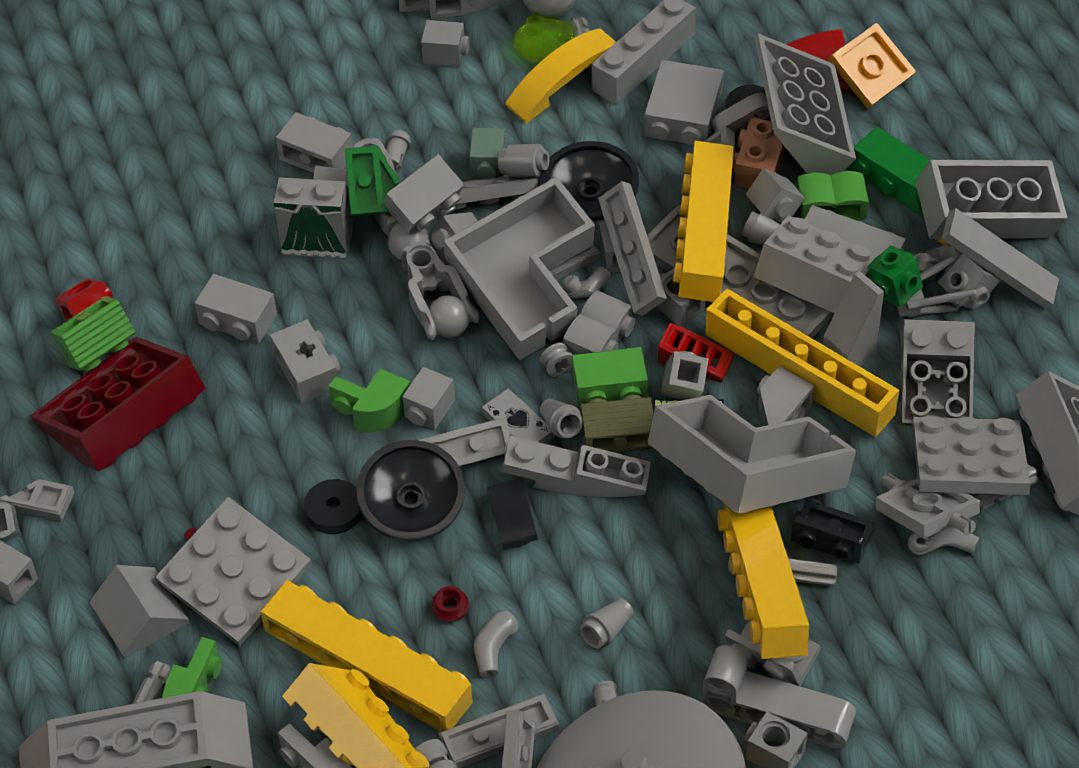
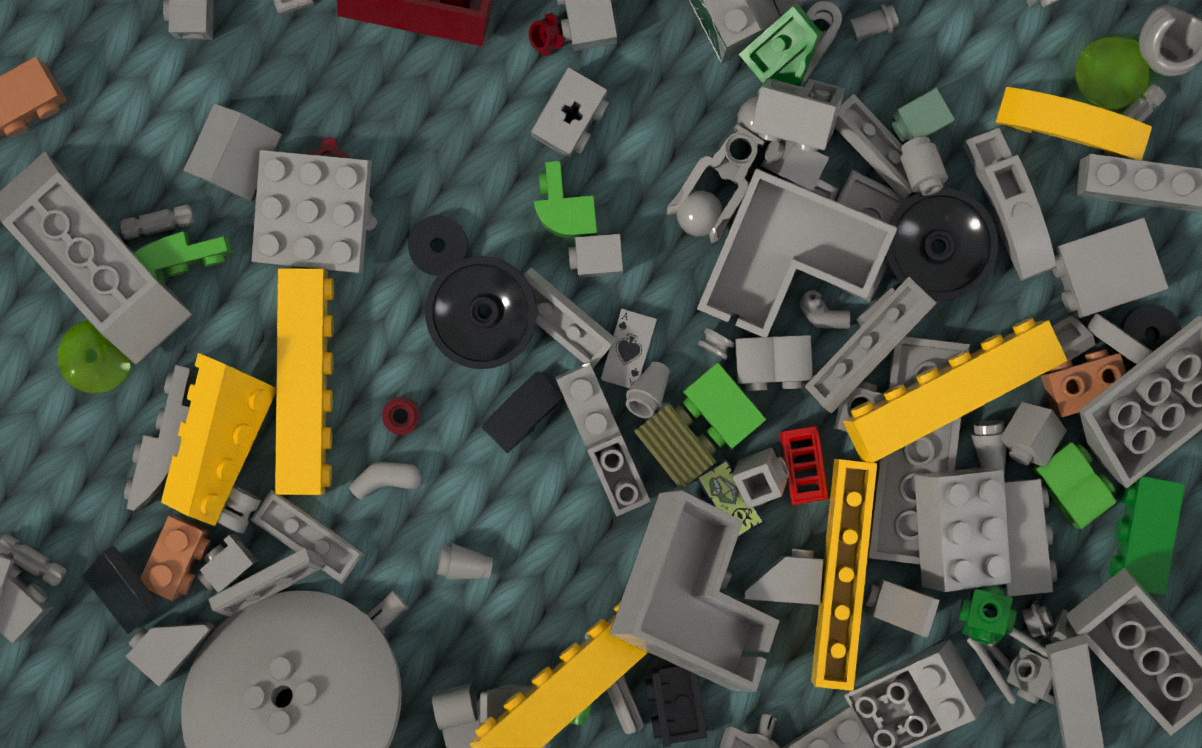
camera: 50 degrees right, 35 degrees up
(224, 350) = (546, 35): none -> dark red plate
(593, 123) = (1013, 204): none -> light grey slope

